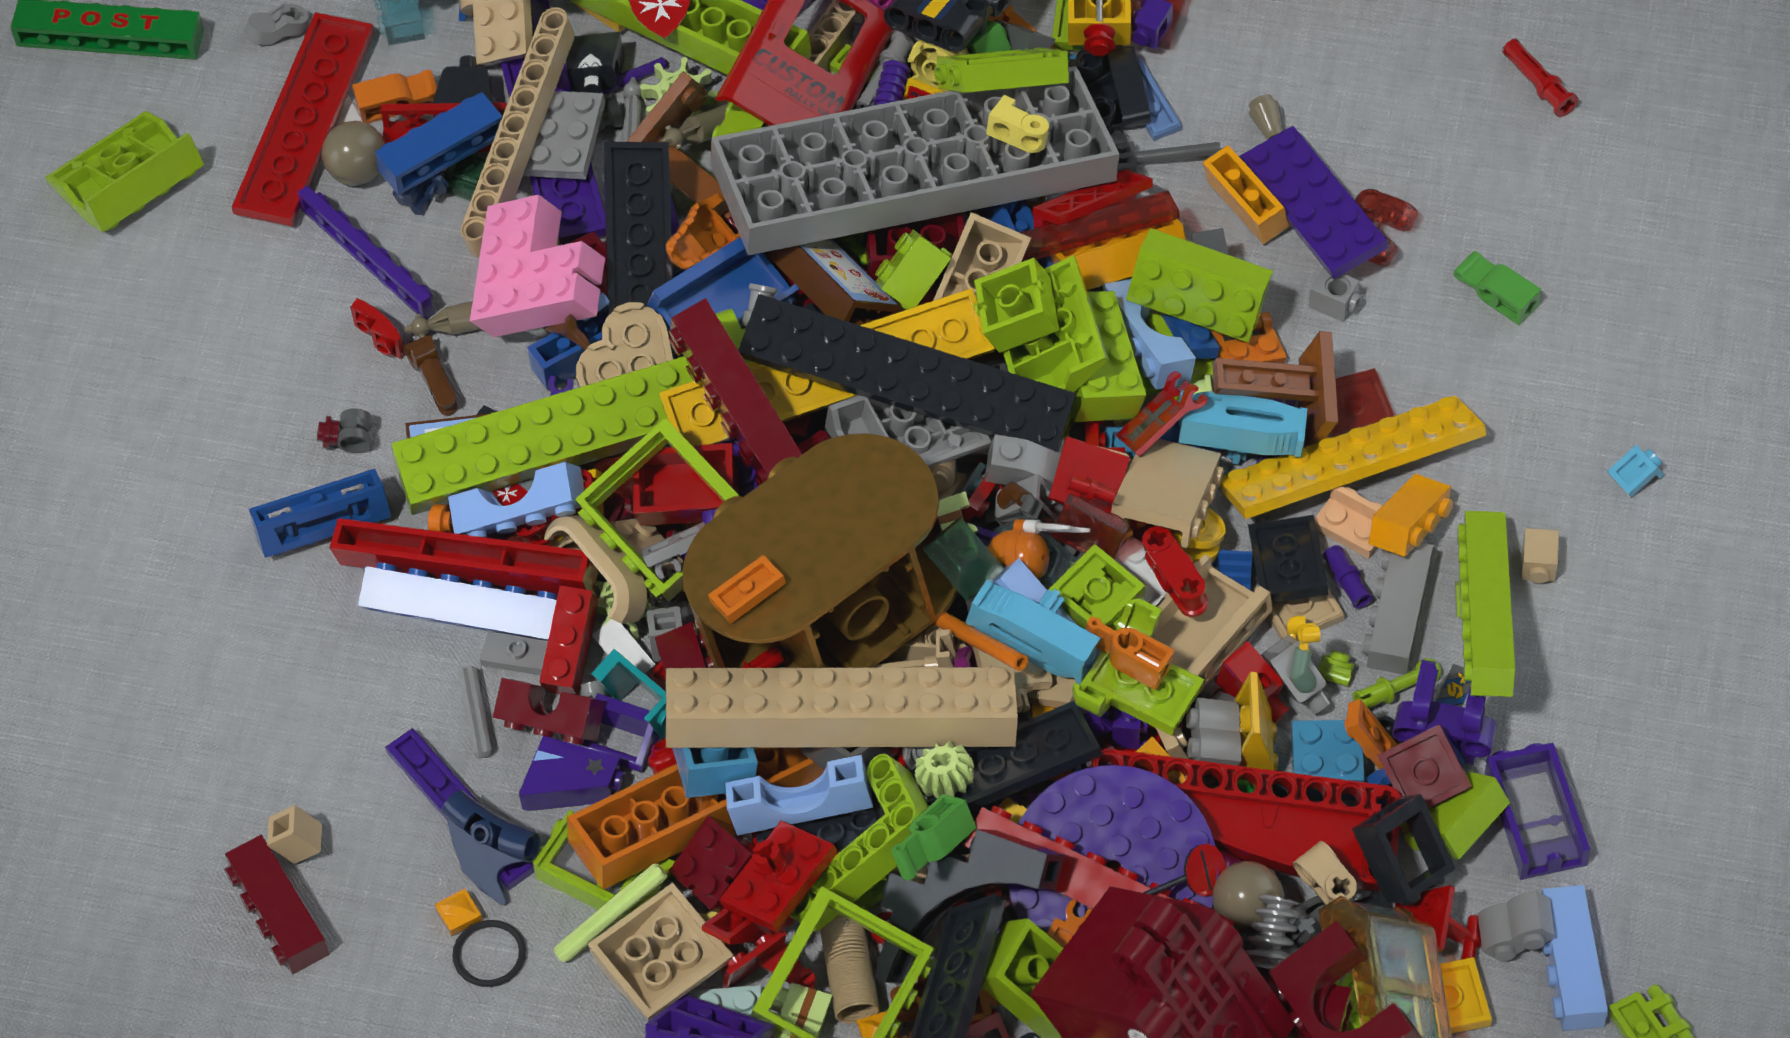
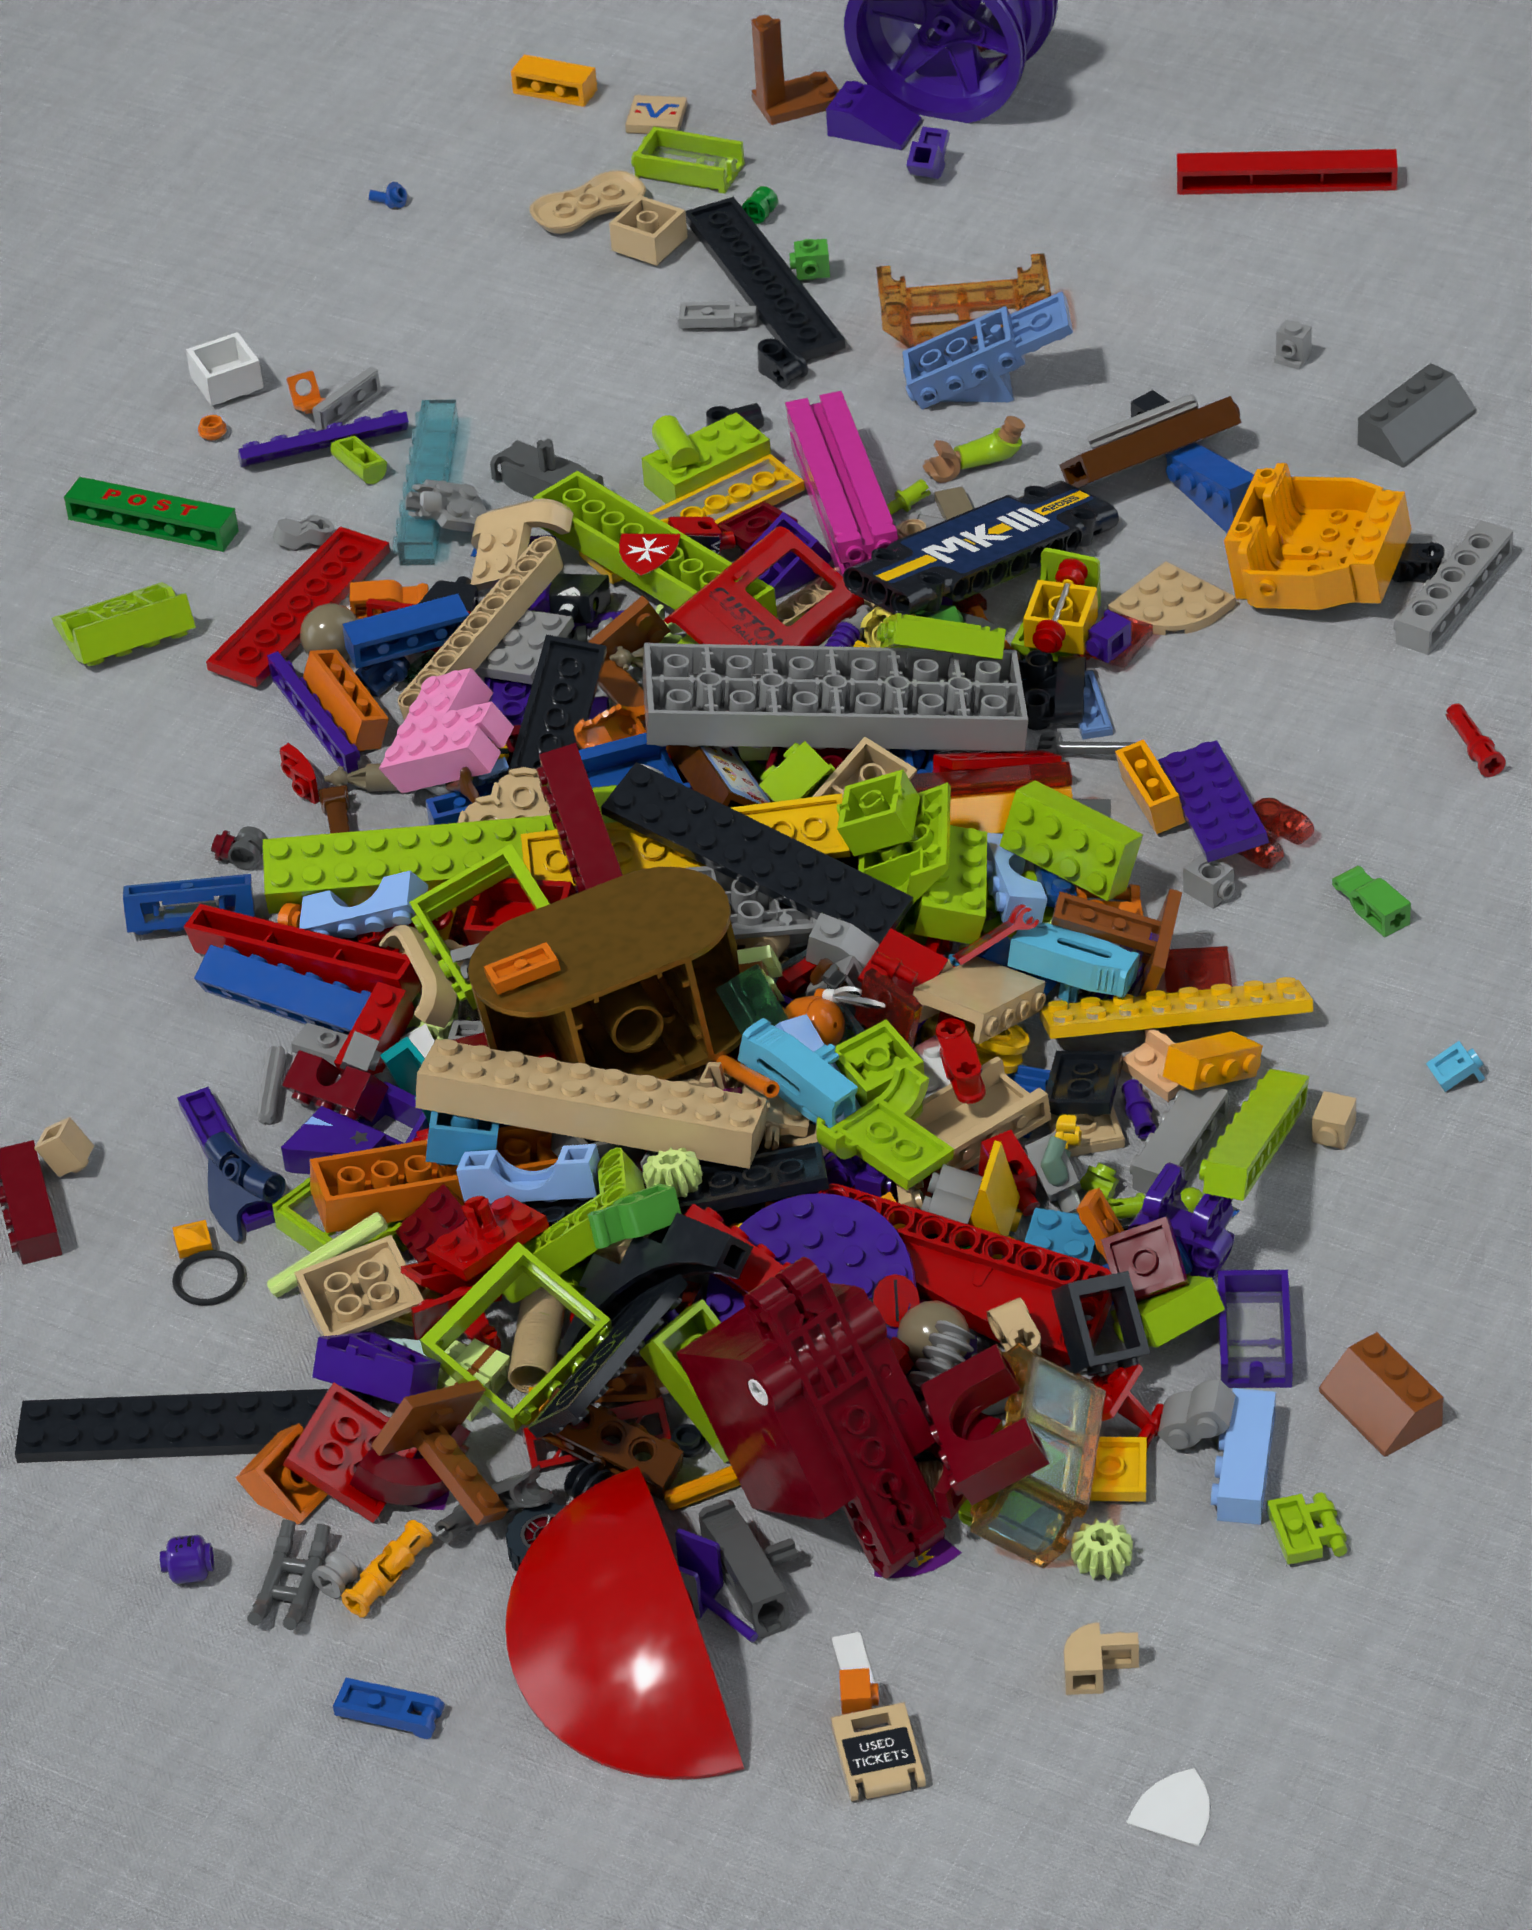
camera: 15 degrees right, 15 degrees down
(396, 230) = (346, 699): none -> orange brick
(570, 675) = (361, 1053): none -> light grey plate
(1017, 126) = (935, 679): light yellow leg -> none
(1133, 652) = (889, 1109): orange piece -> none
(1266, 115) = (1195, 728): dark tan cone -> none
(1679, 863) = (1383, 1395): none -> dark orange slope

